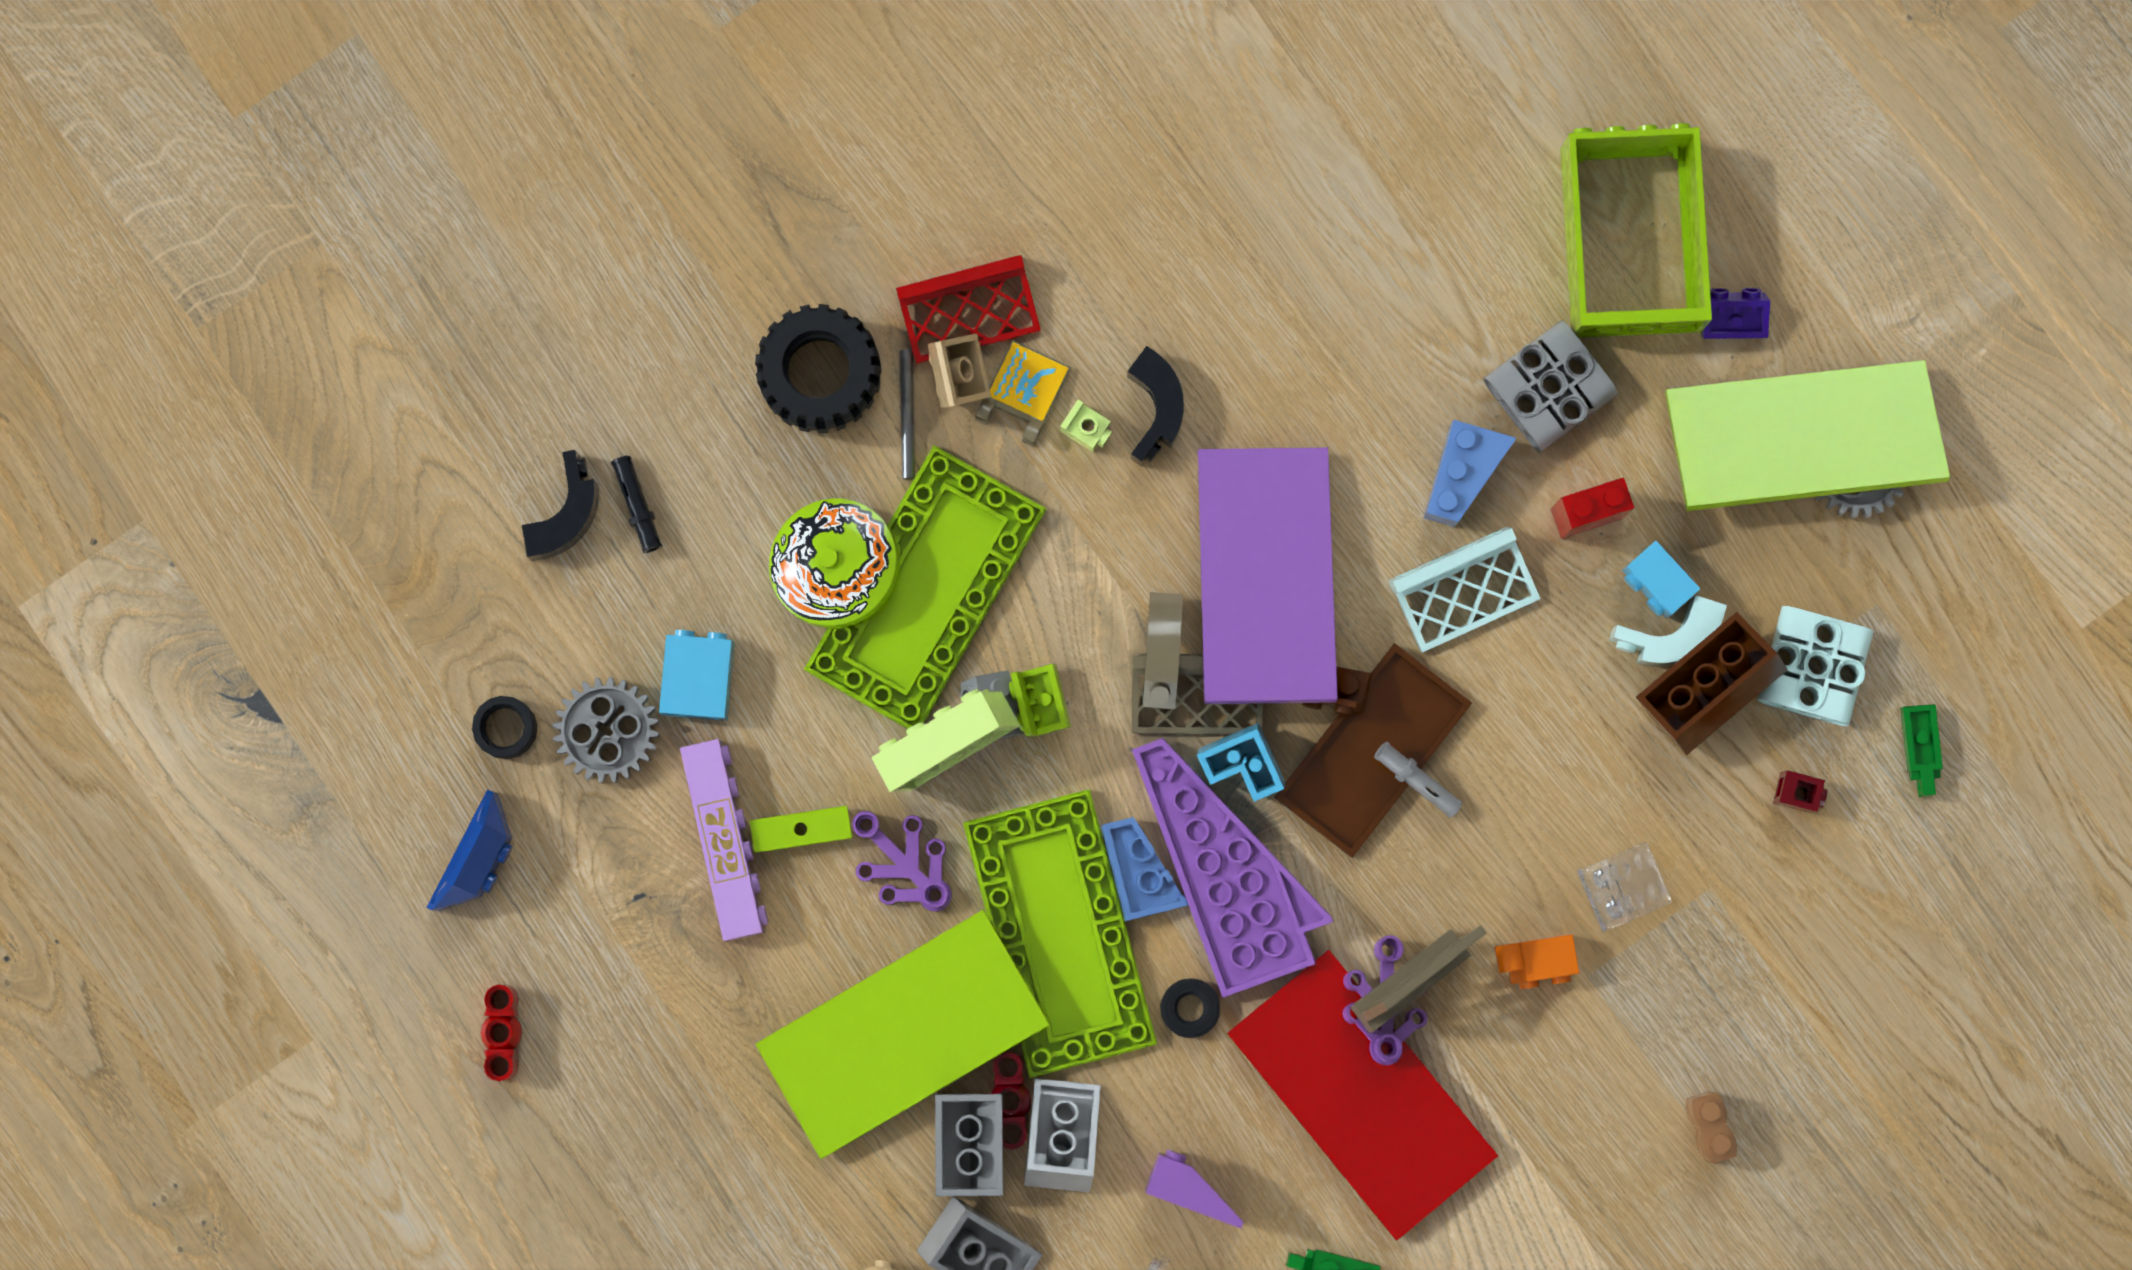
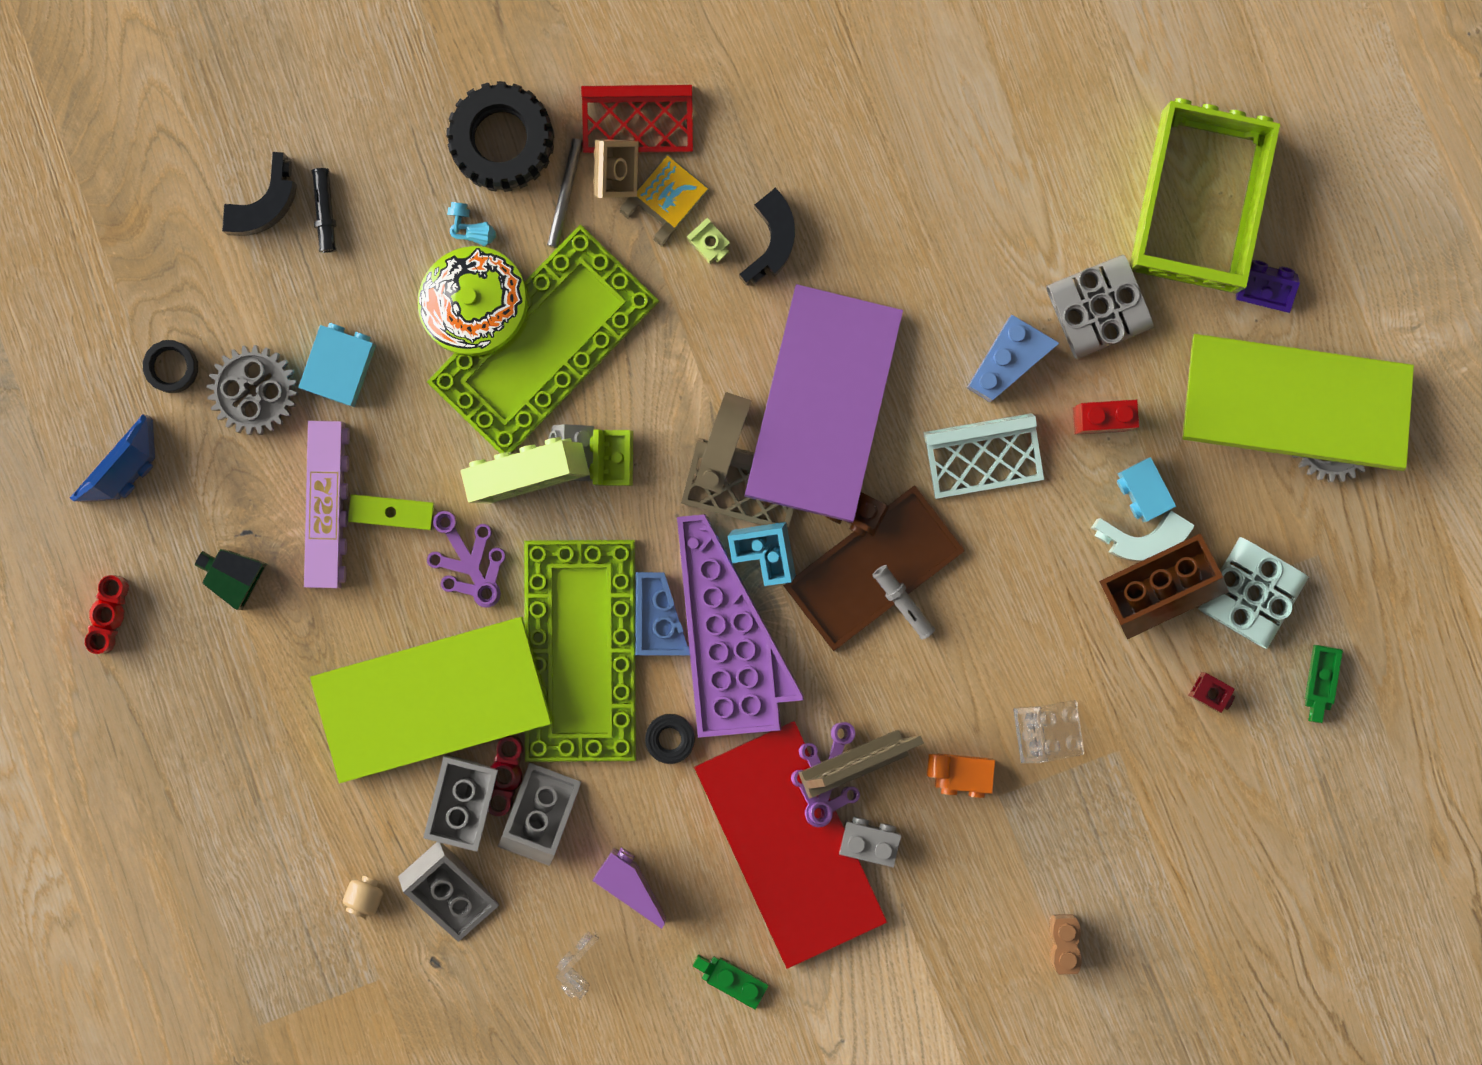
camera: 10 degrees right, 5 degrees up
(634, 950) = (231, 575): none -> torso
(821, 484) = (480, 233): none -> medium azure piece
(1454, 1068) = (870, 842): none -> light grey bracket

